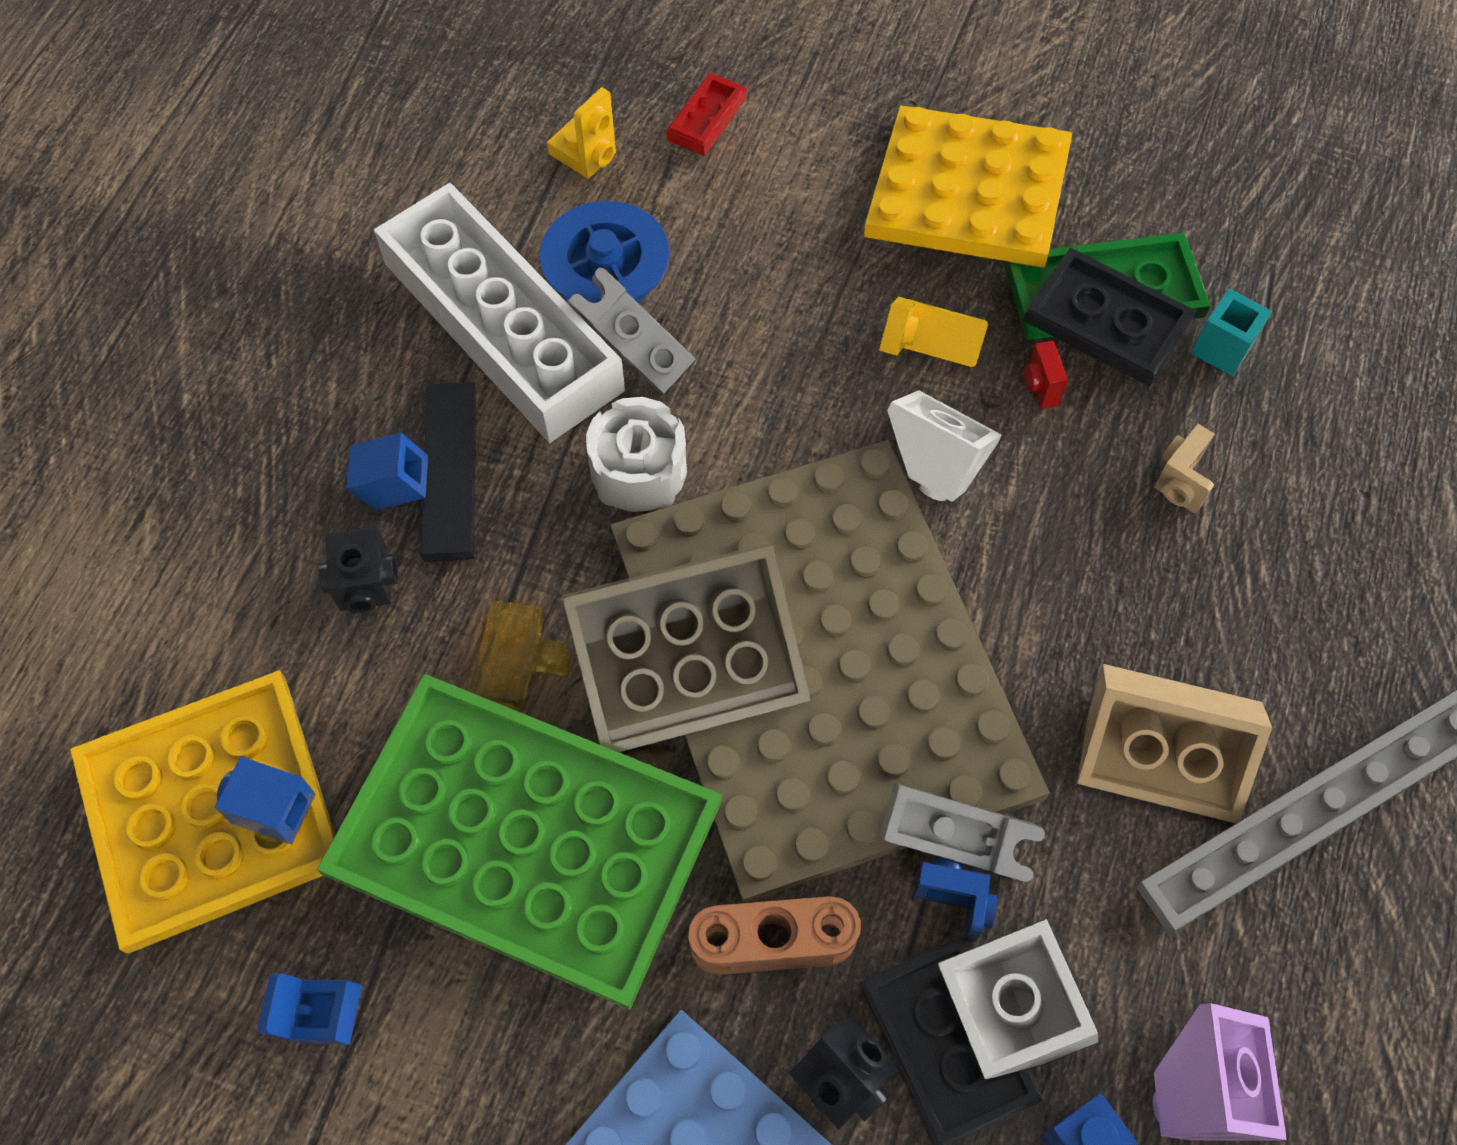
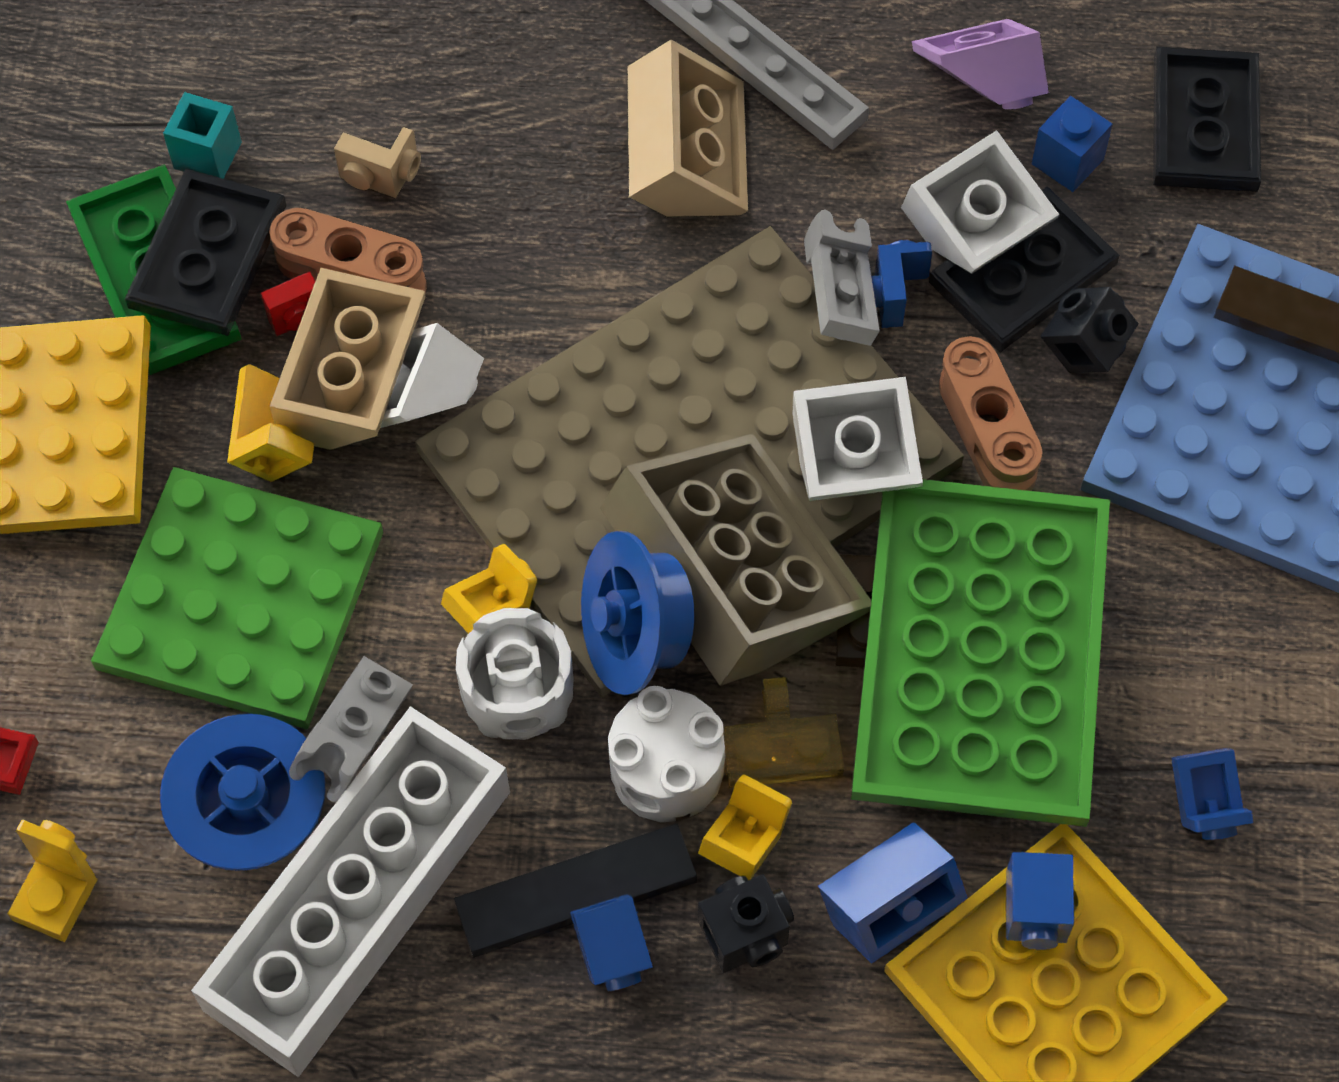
camera: 105 degrees left, 0 degrees up
(335, 691) = (893, 892): none -> blue brick
(440, 597) = (746, 827): none -> yellow bracket
(527, 550) = (666, 754): none -> white brick
(639, 532) = (634, 612): none -> blue wheel
(719, 459) = (504, 584): none -> yellow bracket
(755, 771) = (856, 439): none -> white slope
(785, 299) = (238, 597): none -> bright green plate
(974, 386) = (345, 358): none -> tan slope
(1097, 402) = (314, 240): none -> nougat piece

